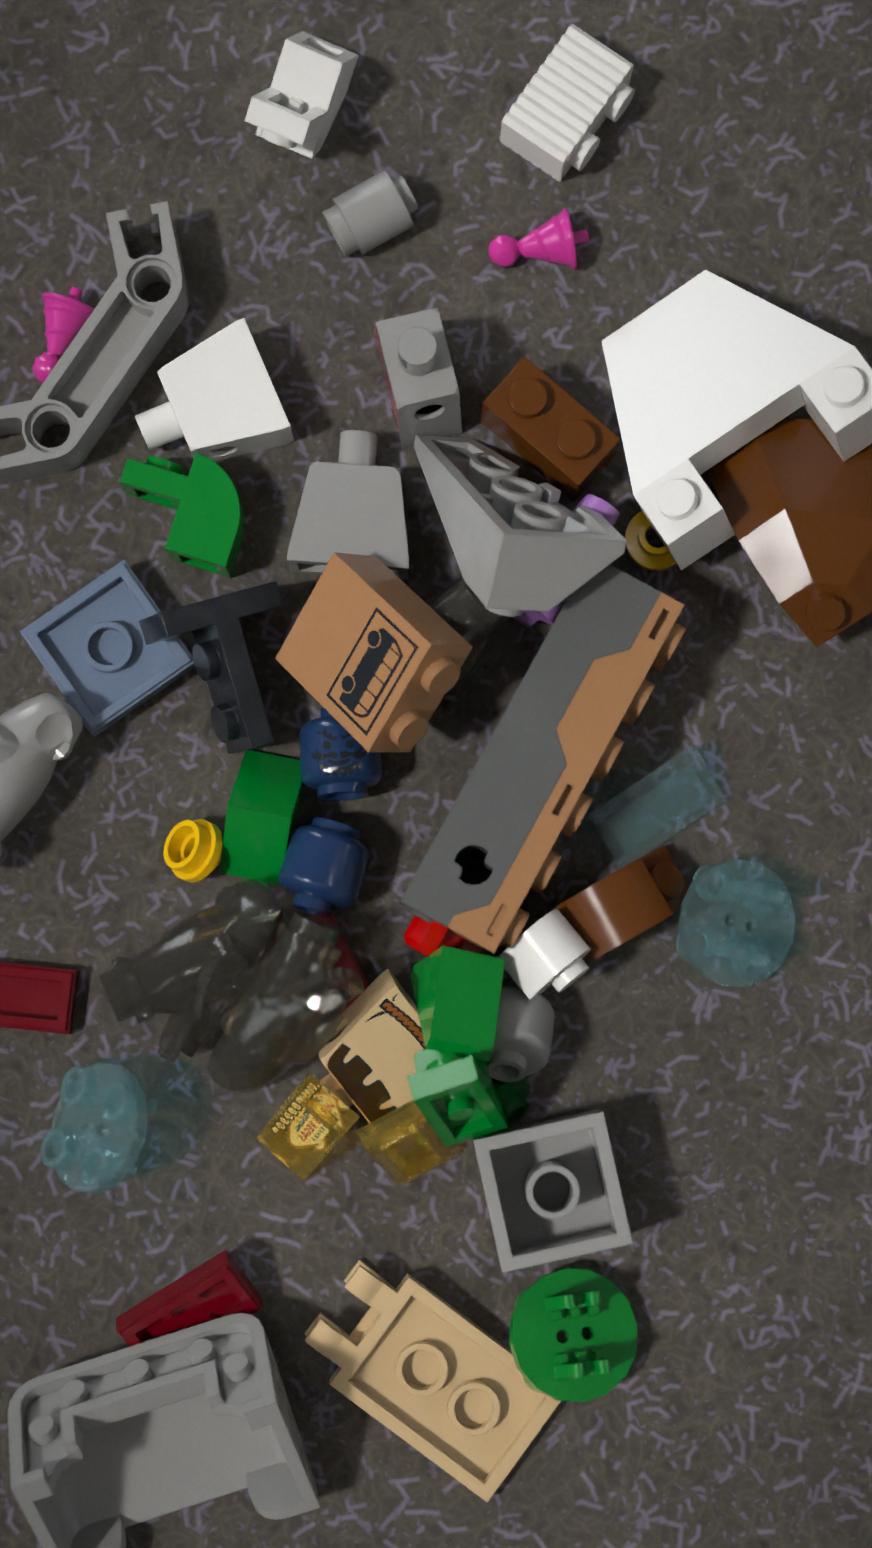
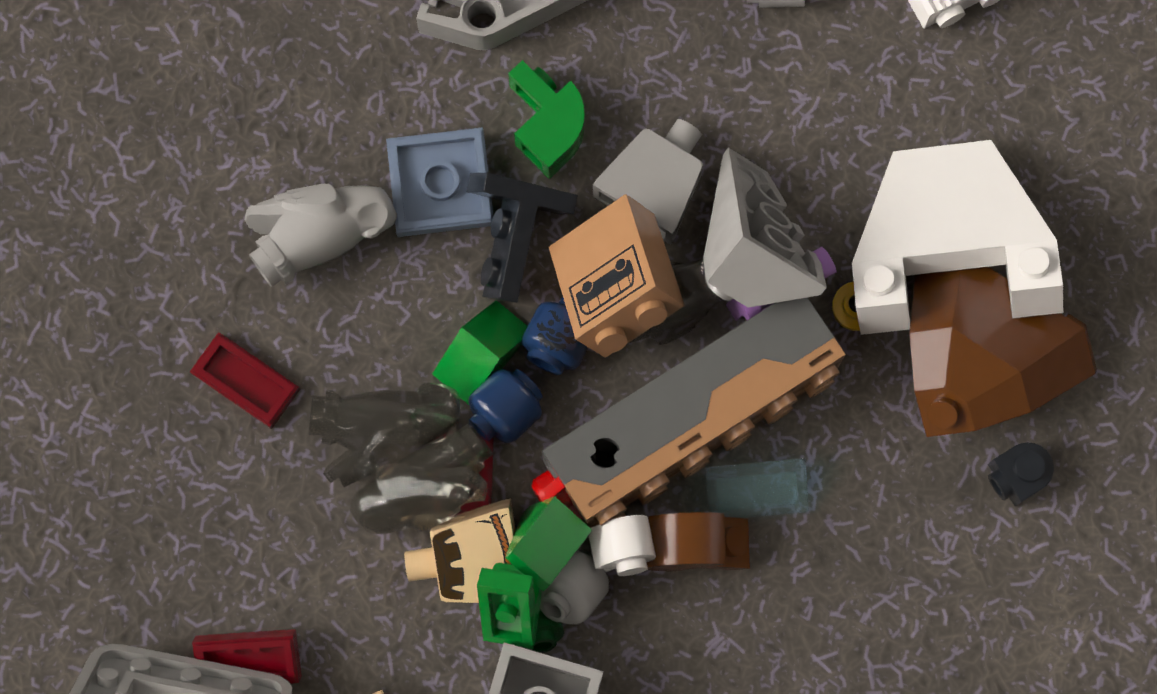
camera: 30 degrees right, 5 degrees down
(97, 1127) = (254, 498): clear light blue plate -> none
(193, 849) = (422, 347): yellow plate -> none
(218, 399) = (605, 54): white torso -> none
(307, 1126) = (396, 574): clear yellow tile -> none
(404, 1143) = (456, 621): clear yellow plate -> none
(419, 375) = (751, 108): light grey torso -> none
(549, 242) = (892, 65): dark pink piece -> none
(549, 429) = (822, 191): reddish brown brick -> none
(728, 951) = (752, 614): clear light blue plate -> none

